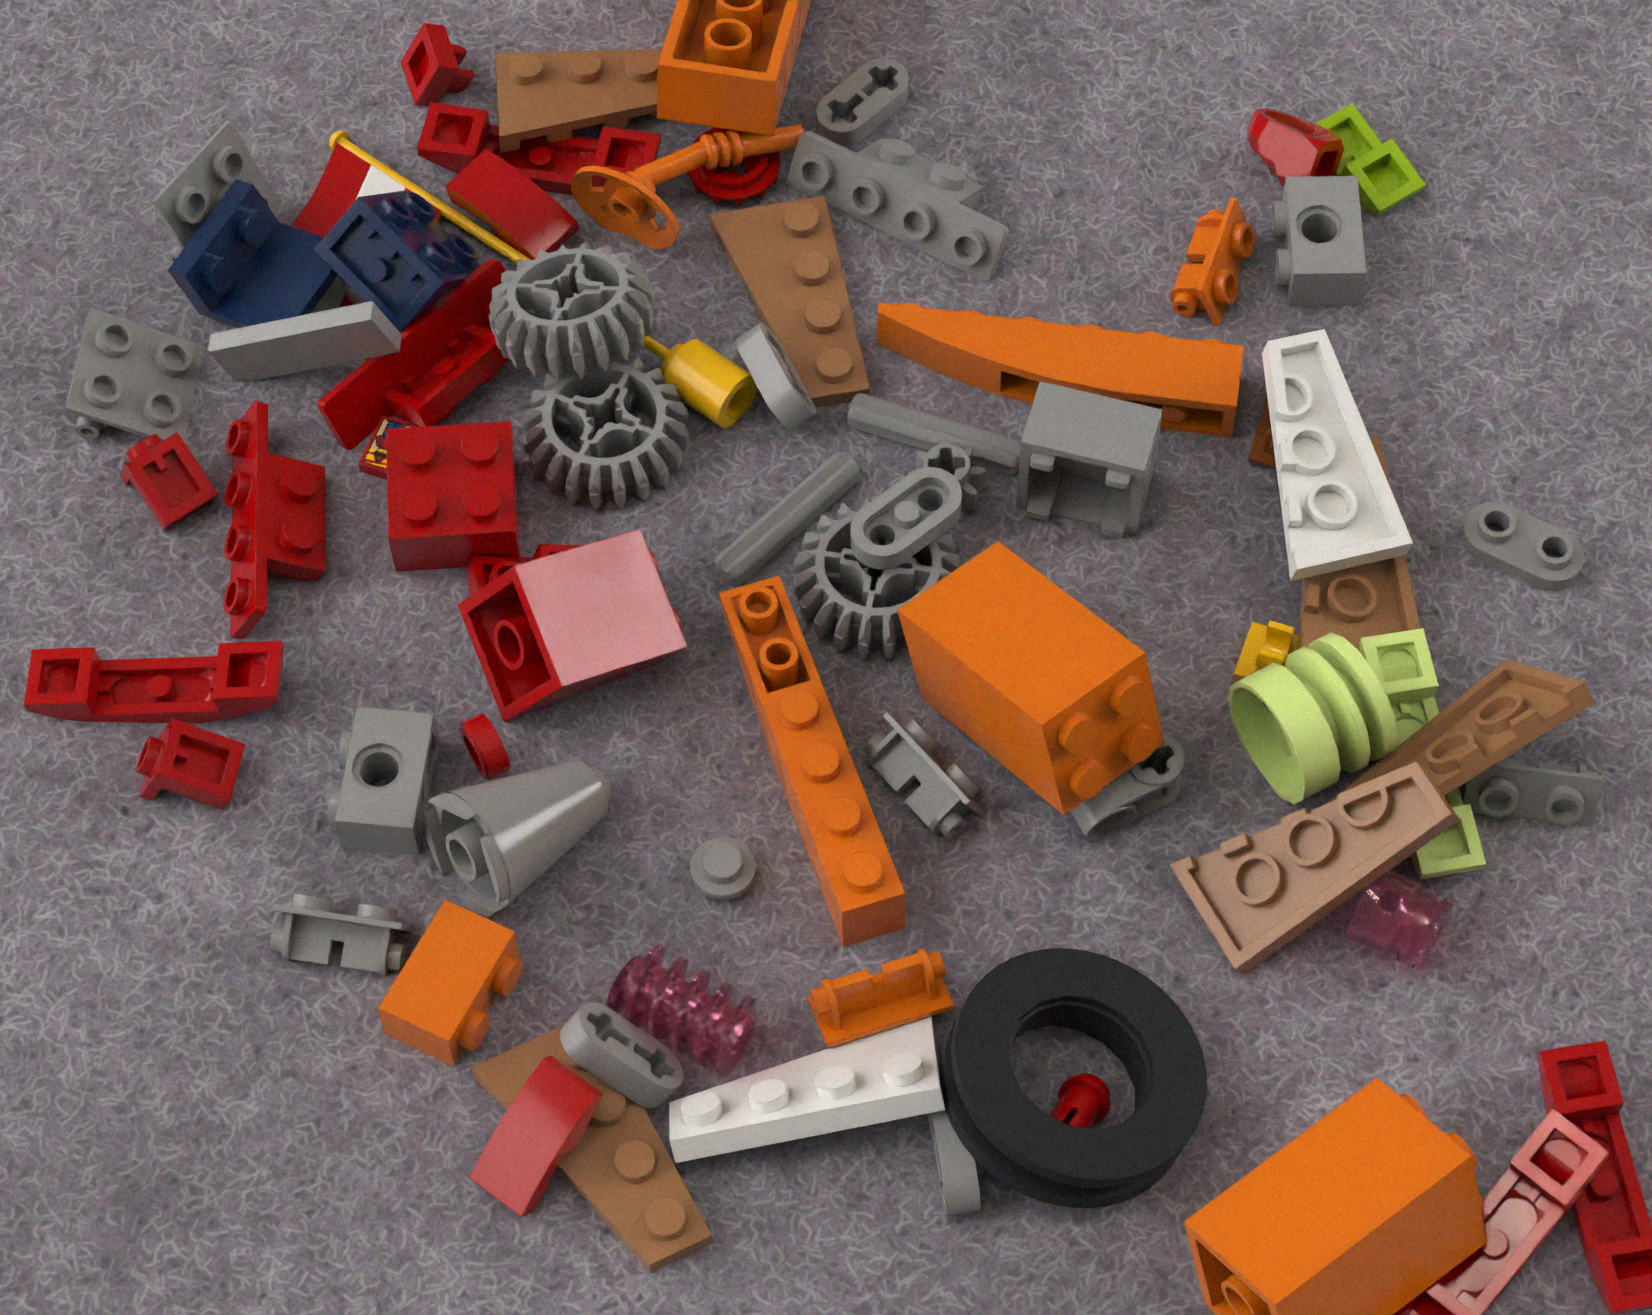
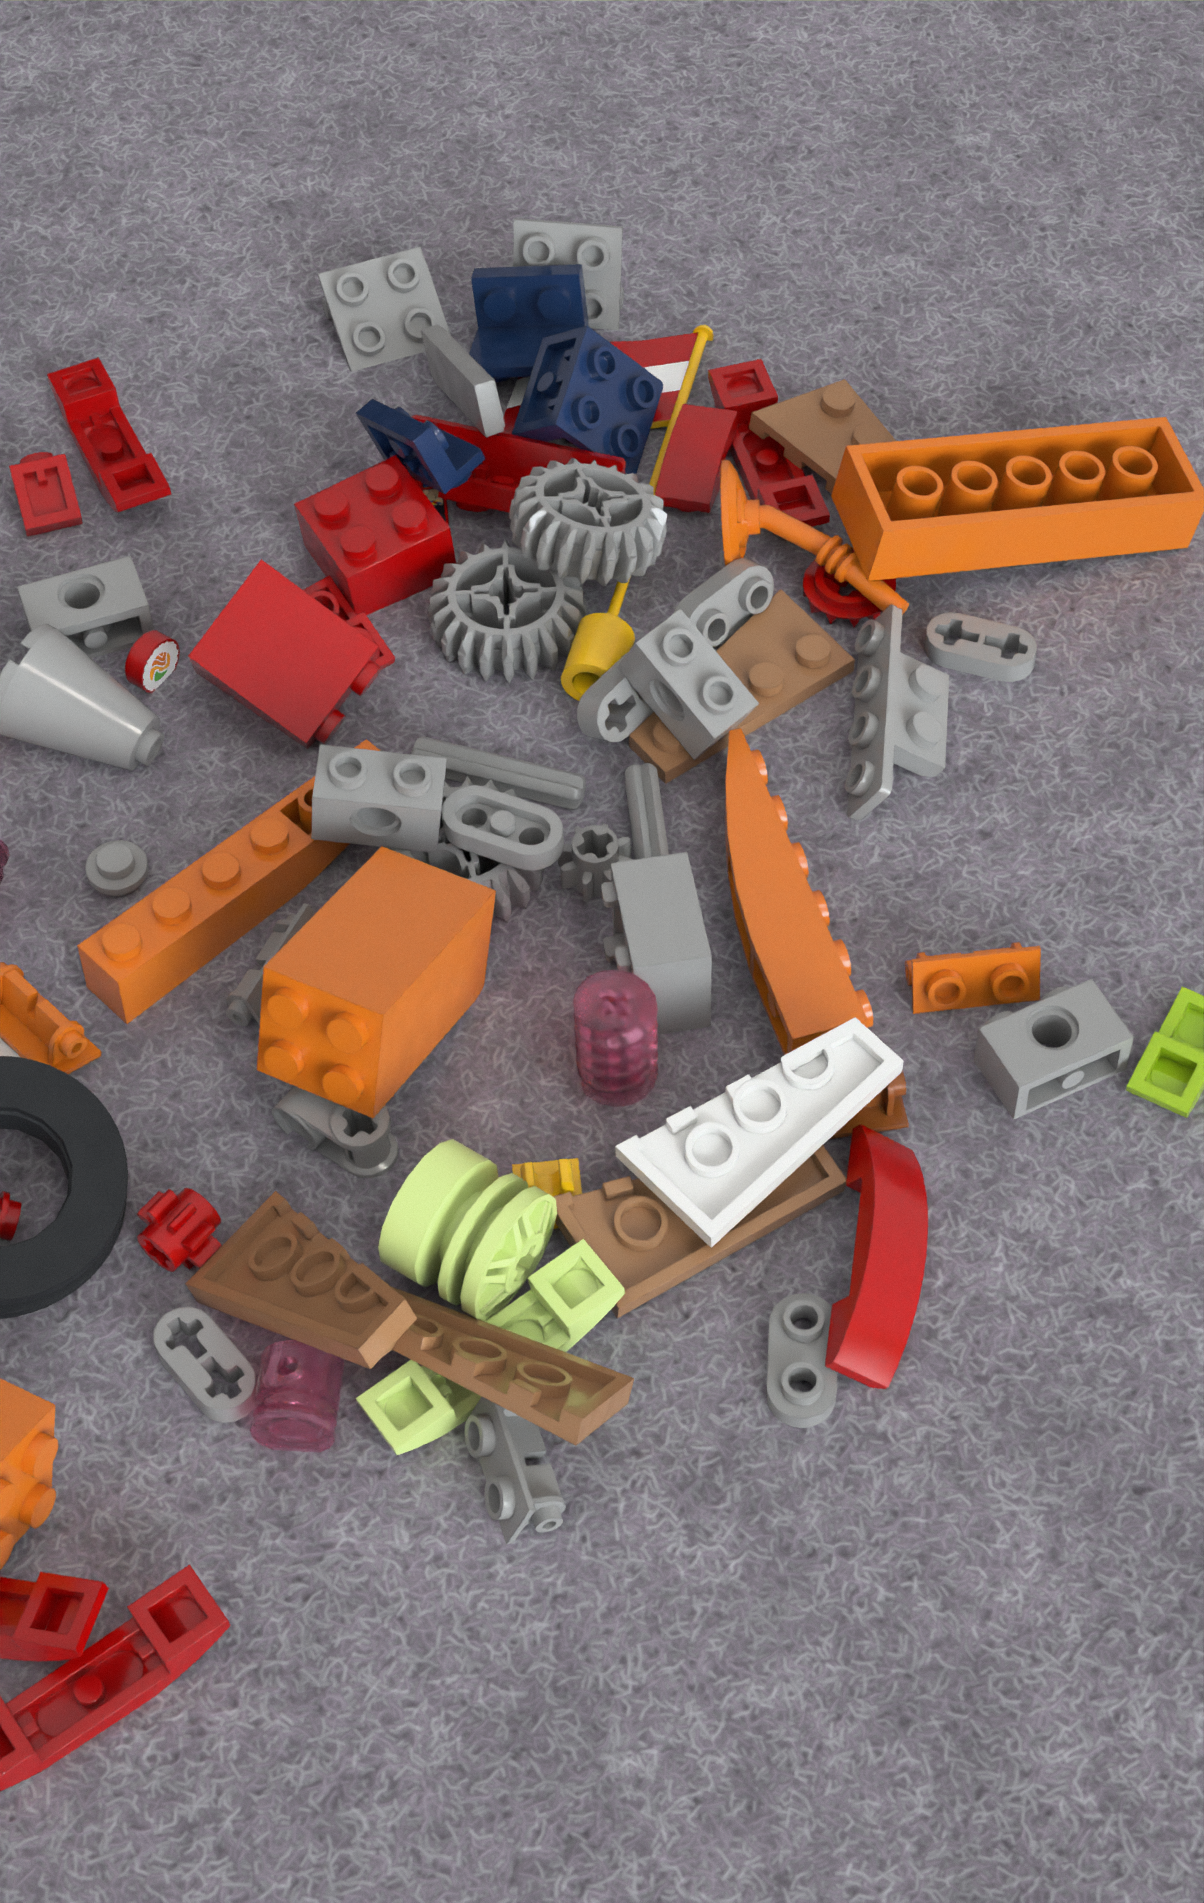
camera: 65 degrees right, 5 degrees down
(167, 478) = (301, 367): red bracket -> none
(274, 519) = (301, 449): red bracket -> none
(397, 400) = (422, 448): none -> dark blue bracket
(433, 65) = (810, 352): red tile -> none
(717, 280) = (728, 600): none -> light grey plate
(825, 313) = (687, 684): none -> light grey brick
(832, 594) = (378, 798): none -> light grey brick
(1170, 530) = (616, 1037): none -> clear pink piece
(1182, 950) = (179, 1229): none -> red gear
(1293, 145) = (1148, 983): rock -> none
(1324, 999) = (193, 1373): none -> light grey beam
(1527, 479) = (888, 1261): none -> red slope

